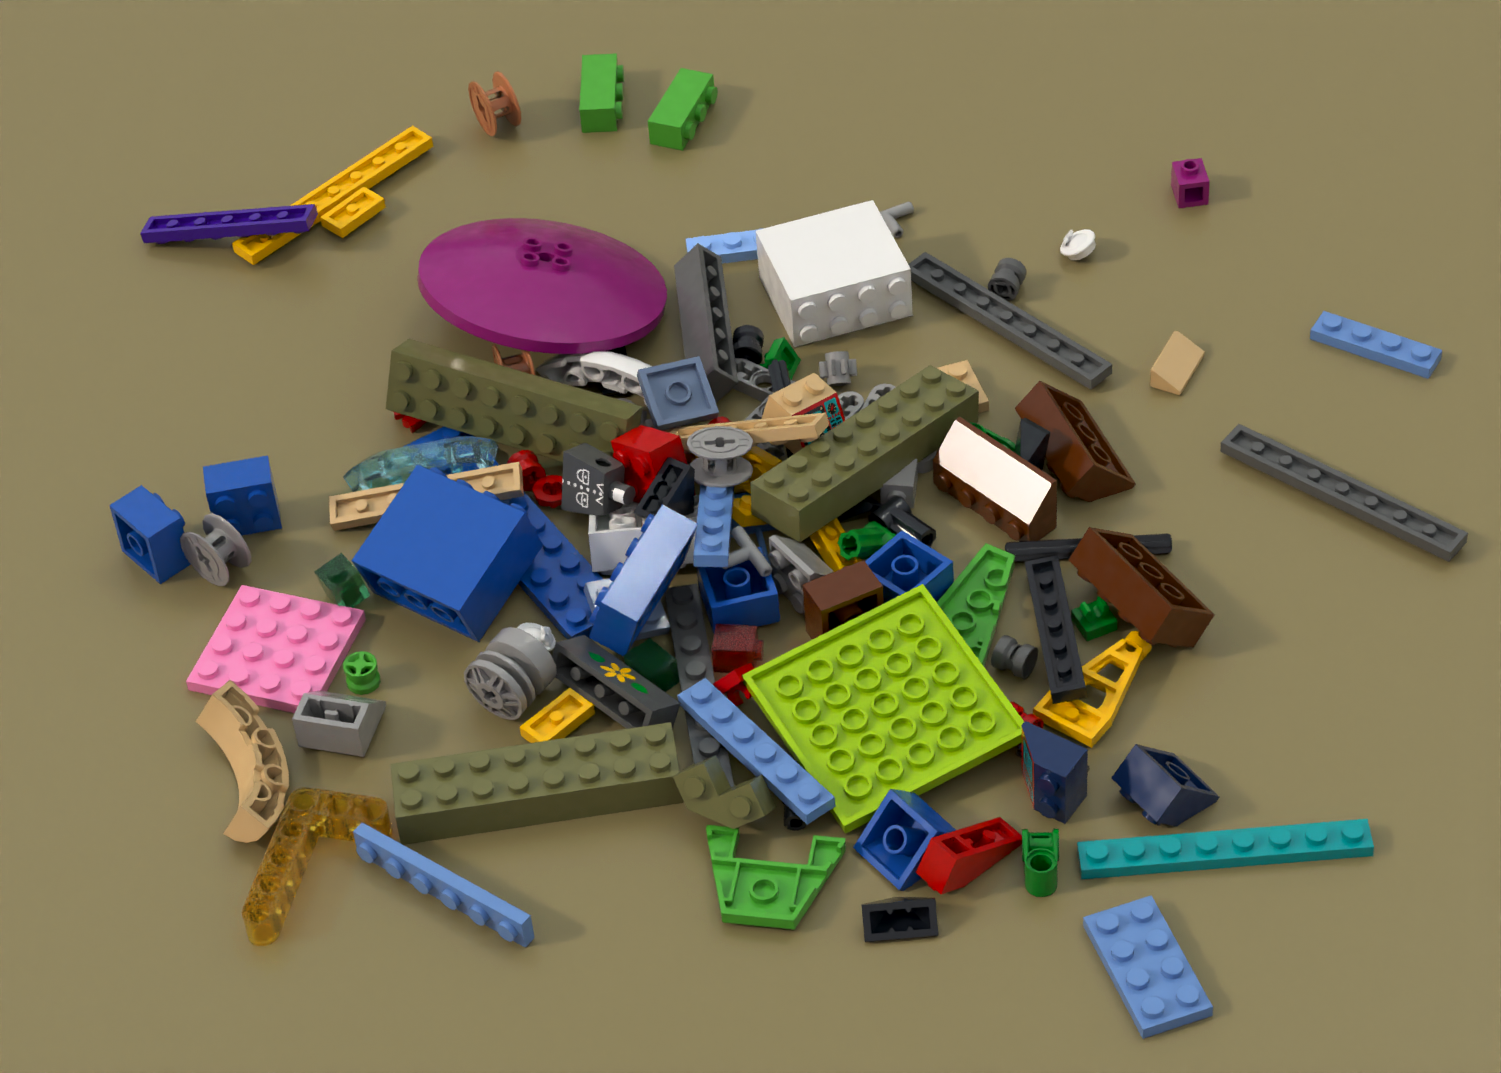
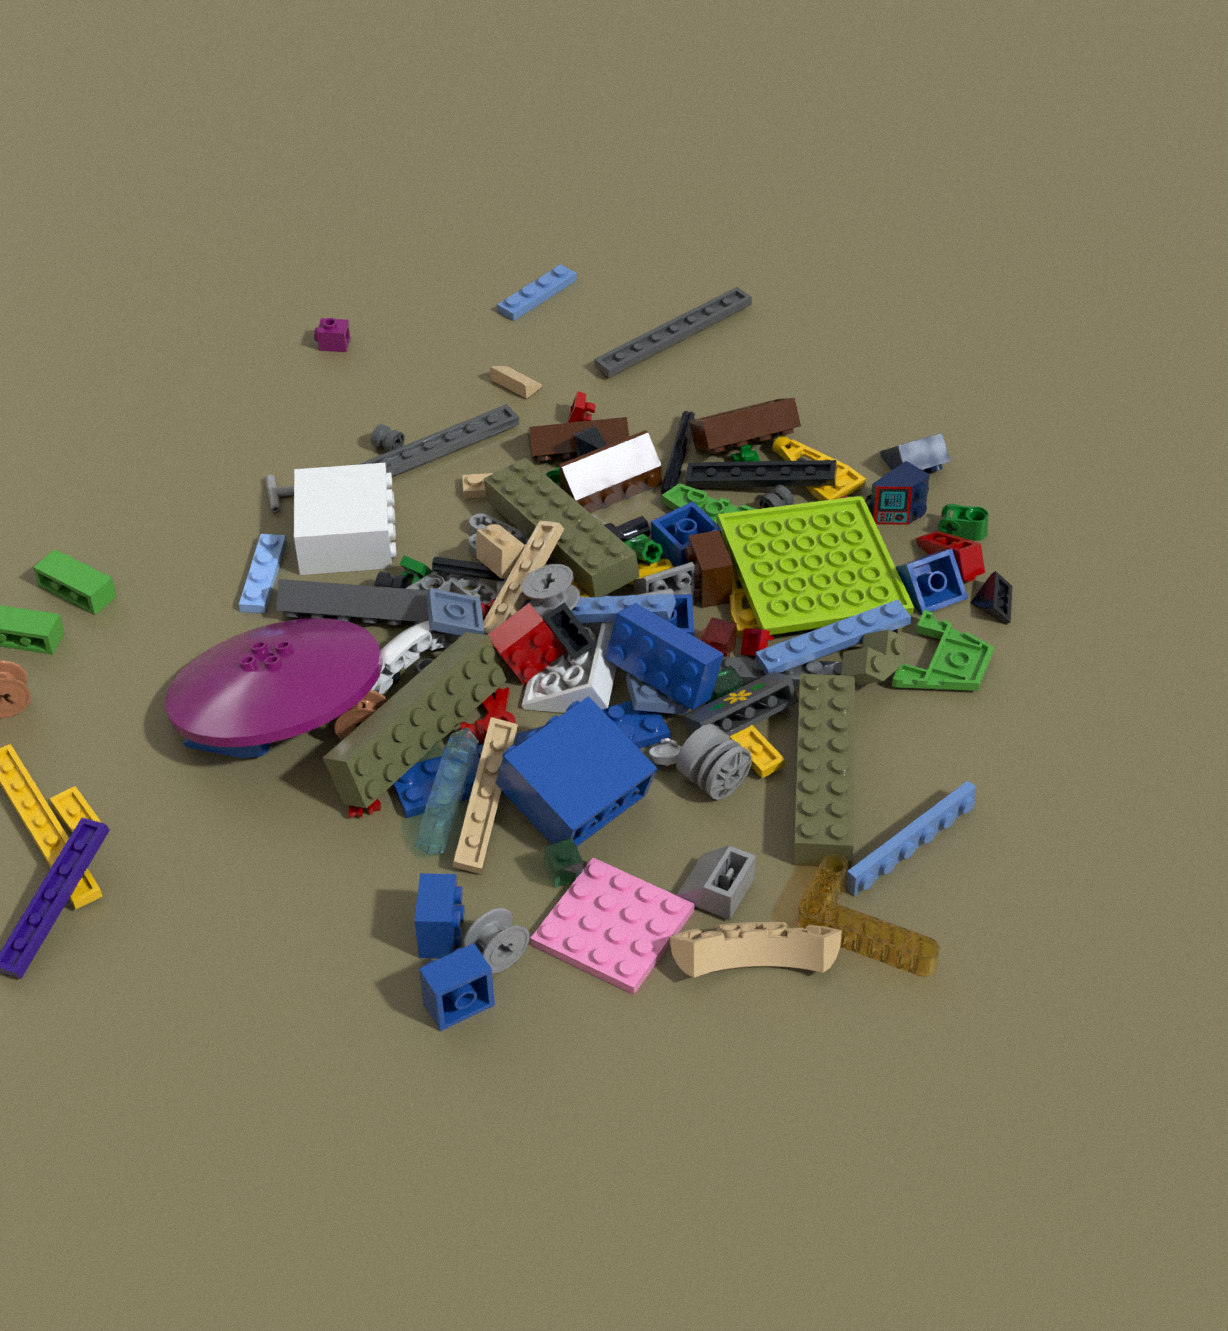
camera: 80 degrees left, 0 degrees up
(361, 672) = (664, 858): bright green wheel -> none
(593, 482) = (525, 683): dark grey torso -> none
(838, 368) = (443, 539): light grey gear -> none
(1078, 244) = (367, 398): white hat -> none
(1132, 433) = (579, 408): none -> red tile
(1147, 967) = (1060, 495): medium blue plate -> none
(1225, 849) = (969, 443): teal plate -> none

